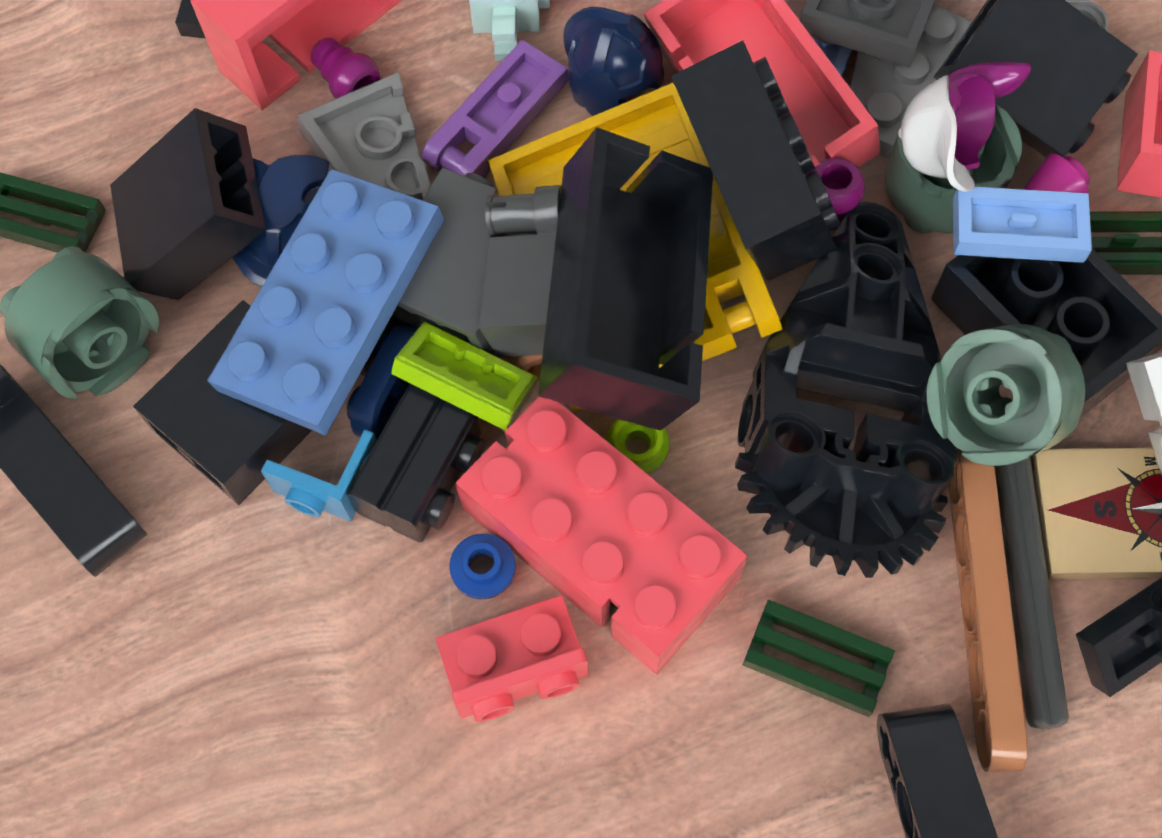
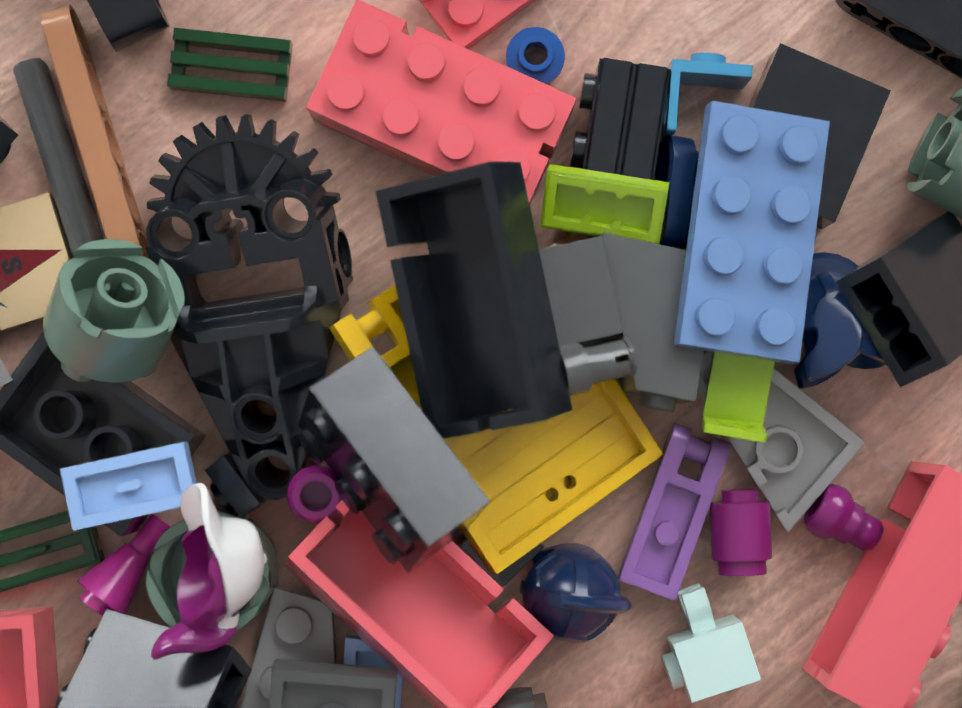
camera: 160 degrees right, 20 degrees up
(404, 164) = (737, 397): none -> lime bracket
(441, 78) = (741, 533): none -> magenta brick
(919, 231) = (231, 488): none -> black plate

